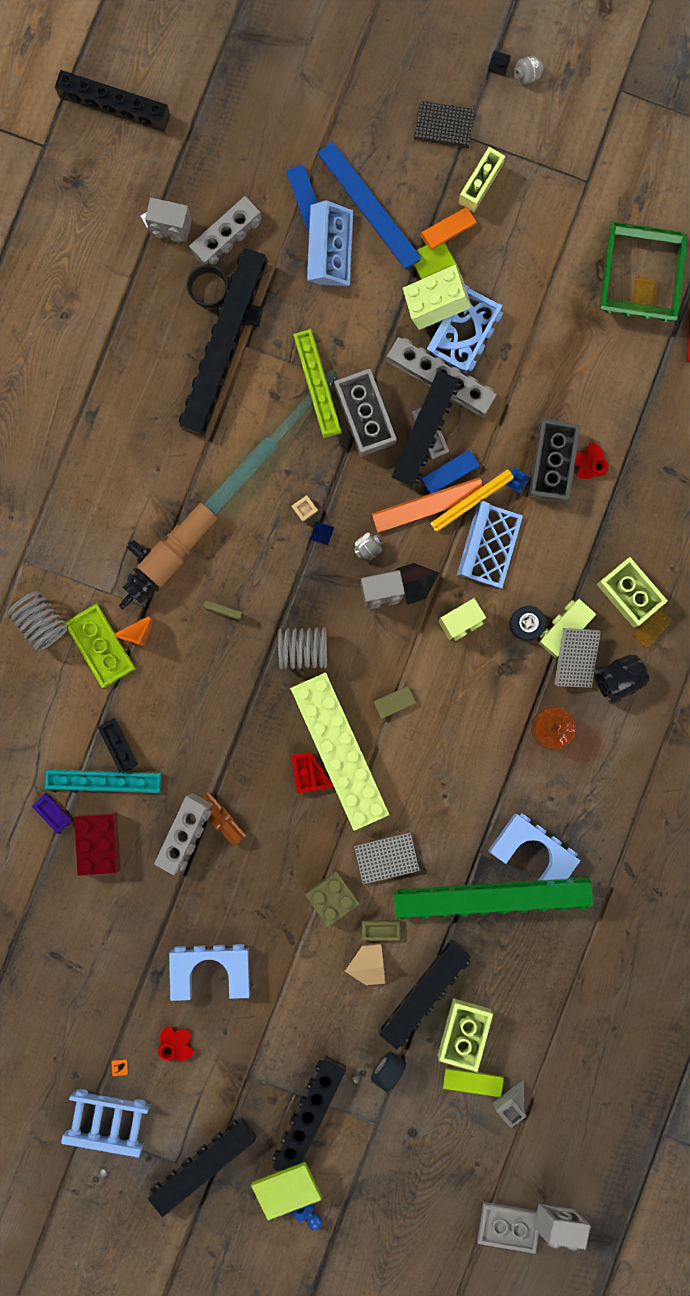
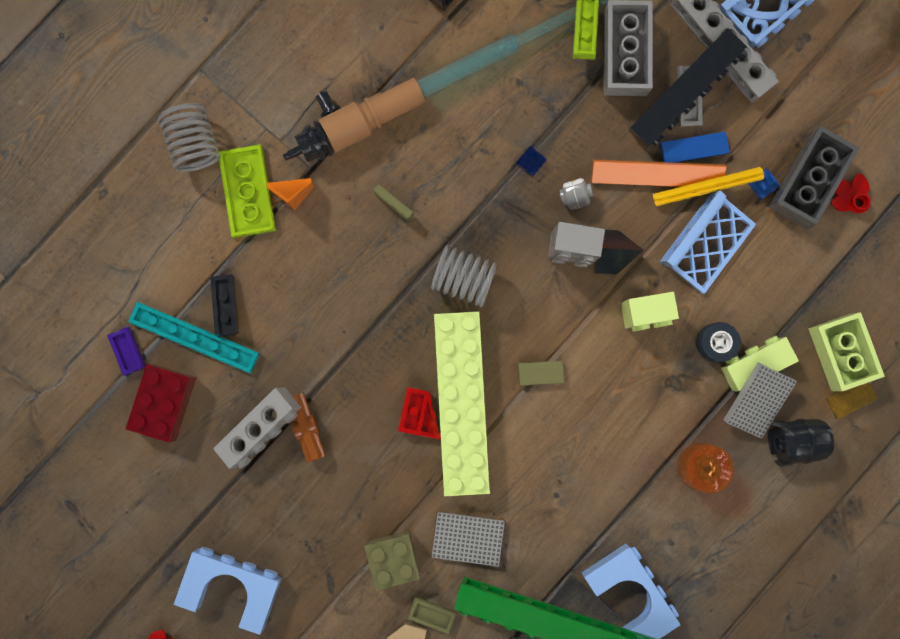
camera: 20 degrees right, 0 degrees up
(304, 508) = (522, 127): tan plate -> none

